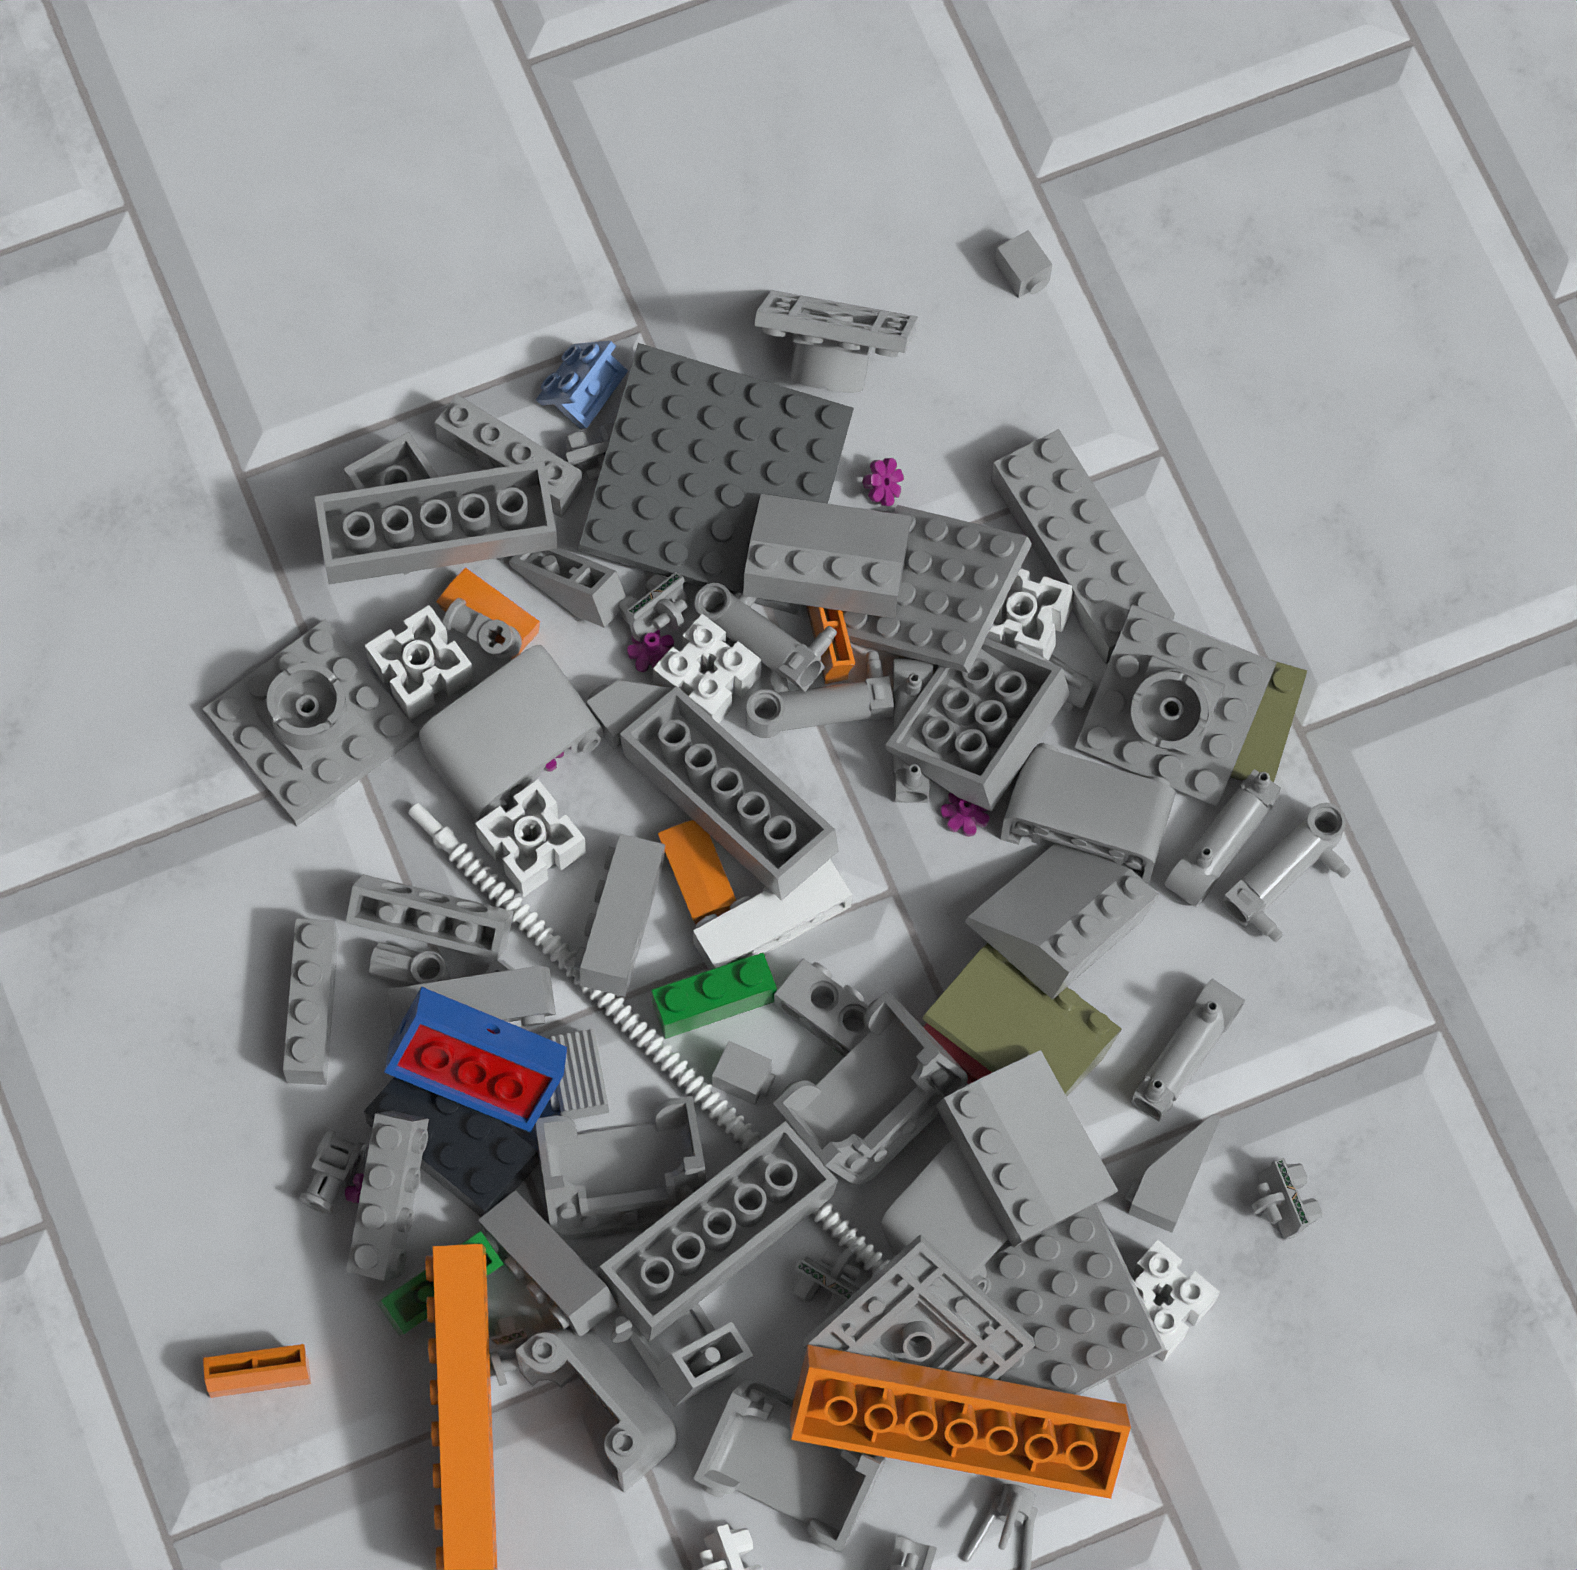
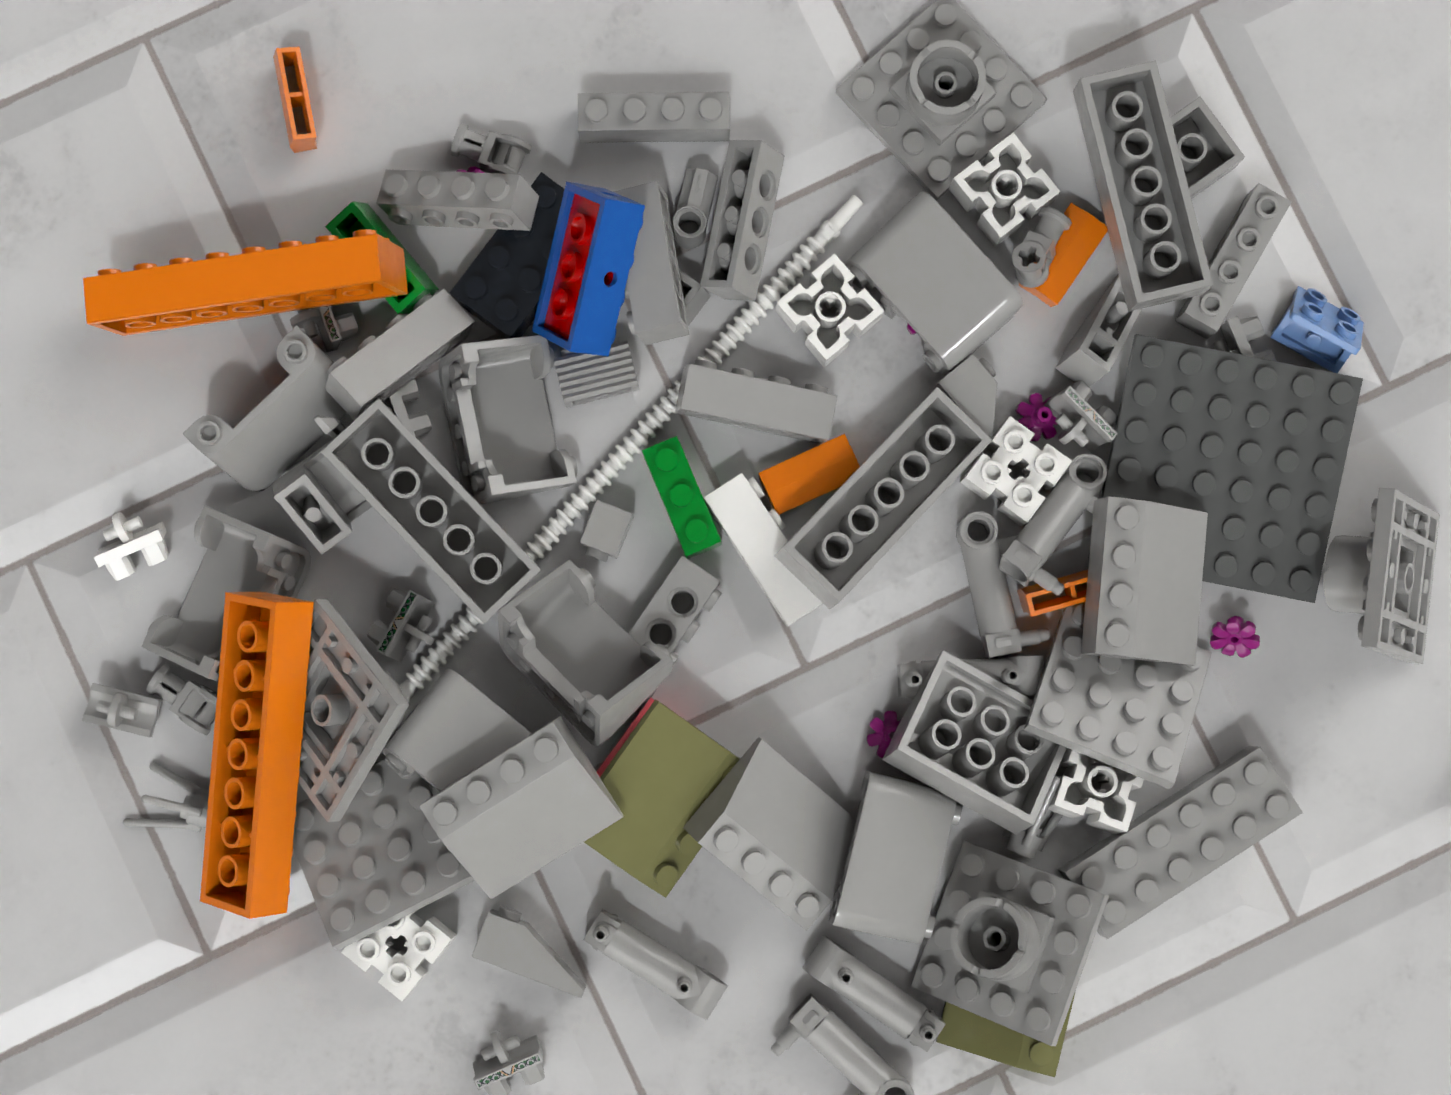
camera: 85 degrees right, 15 degrees up
(901, 1507) = (192, 701): none -> light grey connector

